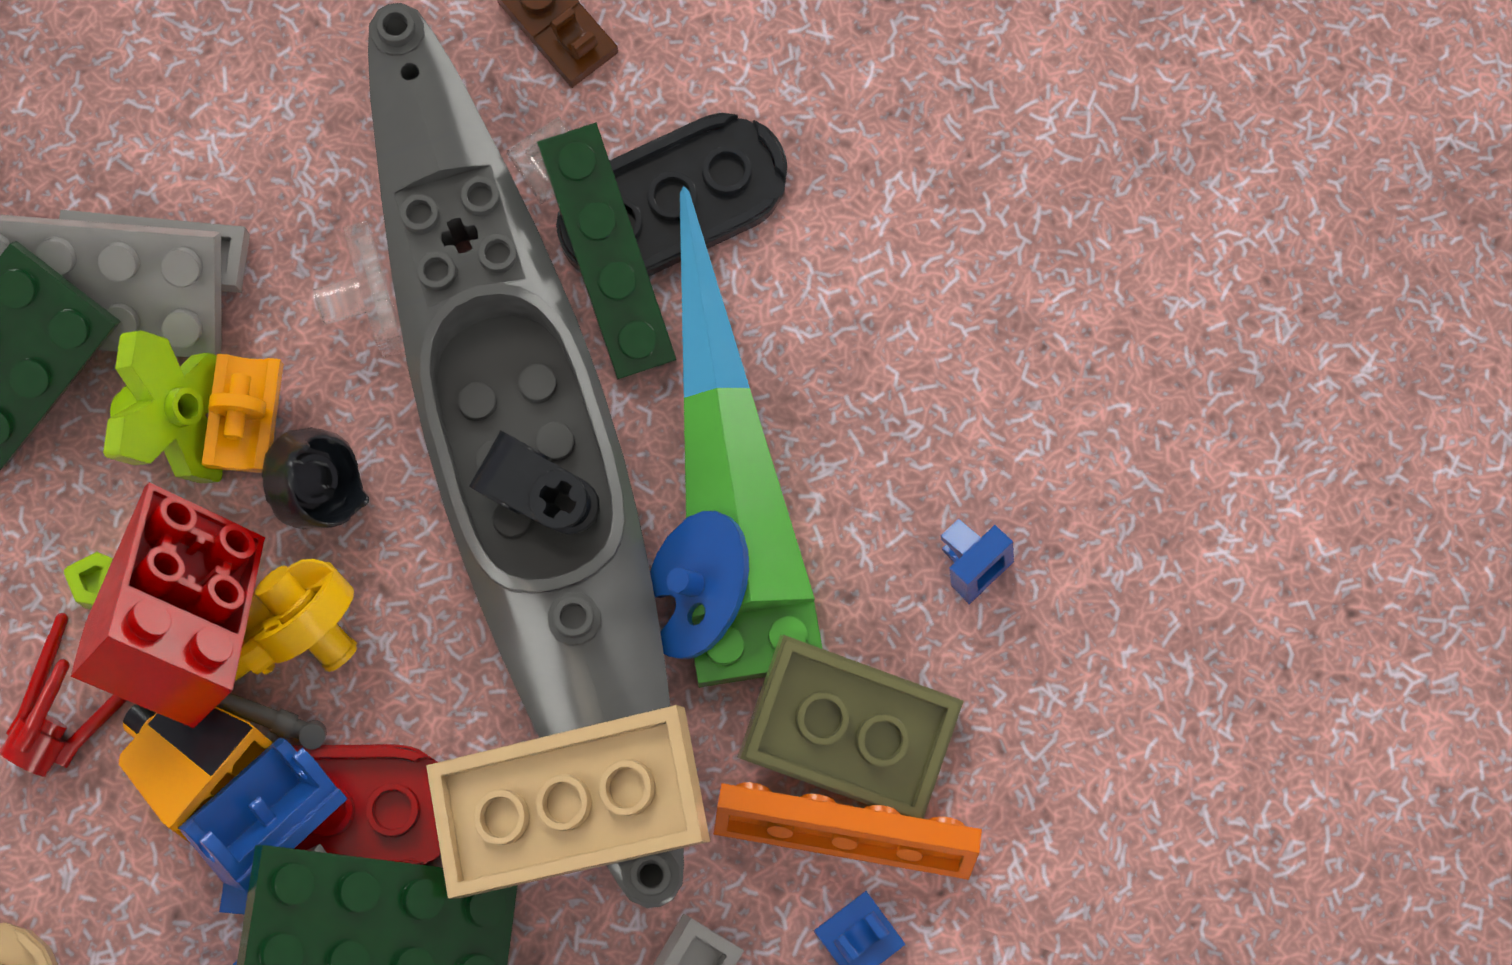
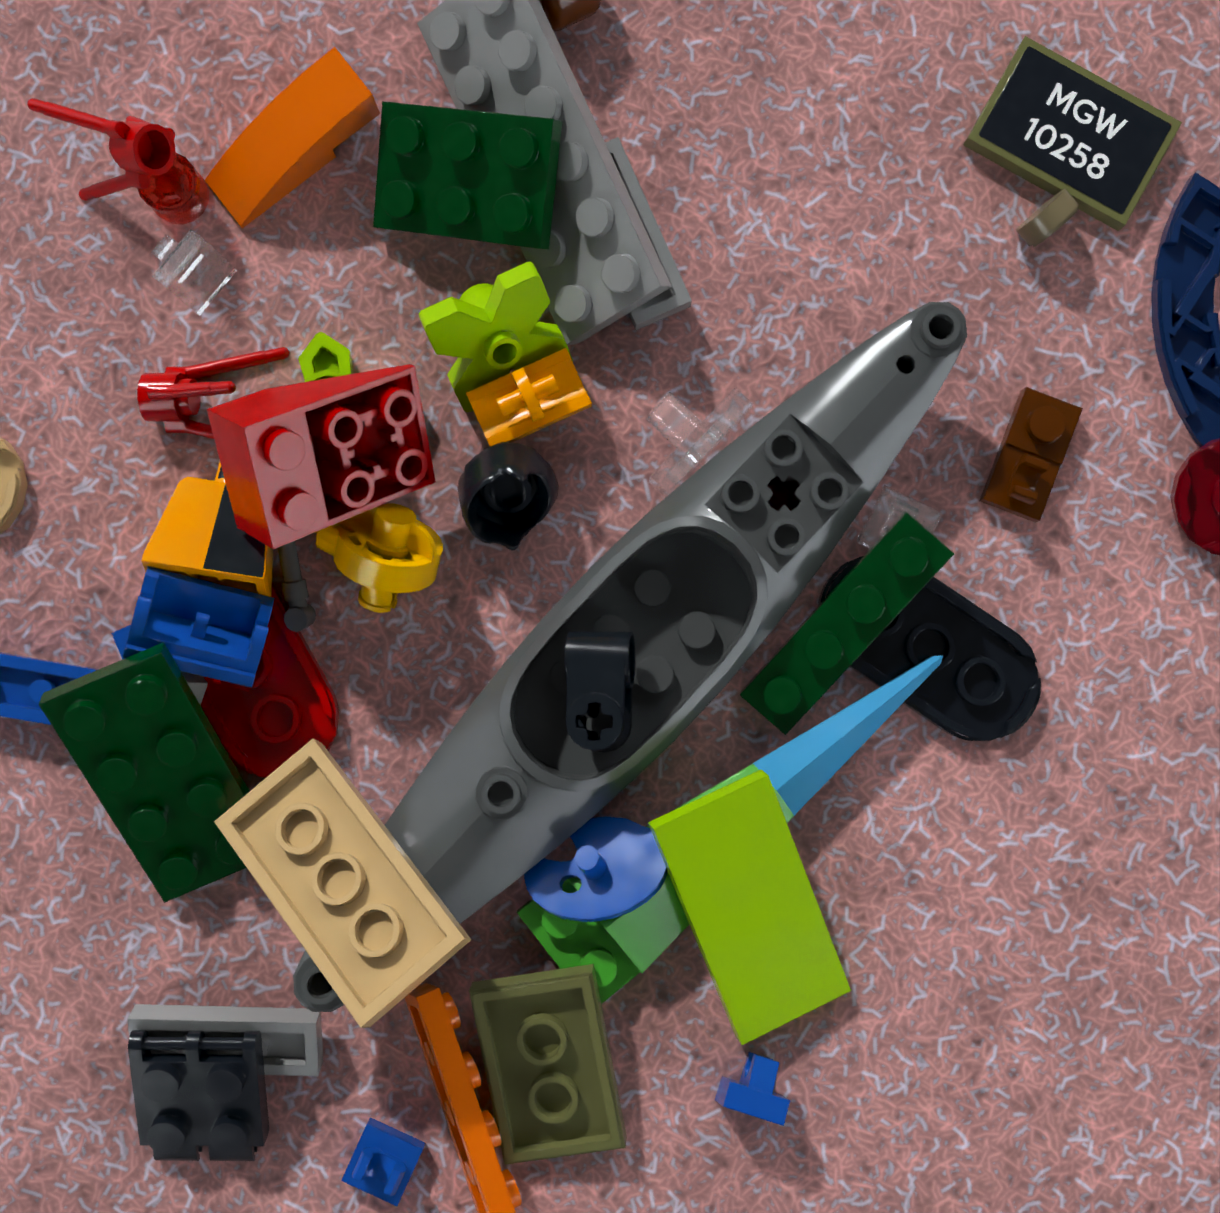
camera: 60 degrees right, 10 degrees up
(806, 466) = (750, 906): none -> lime tile

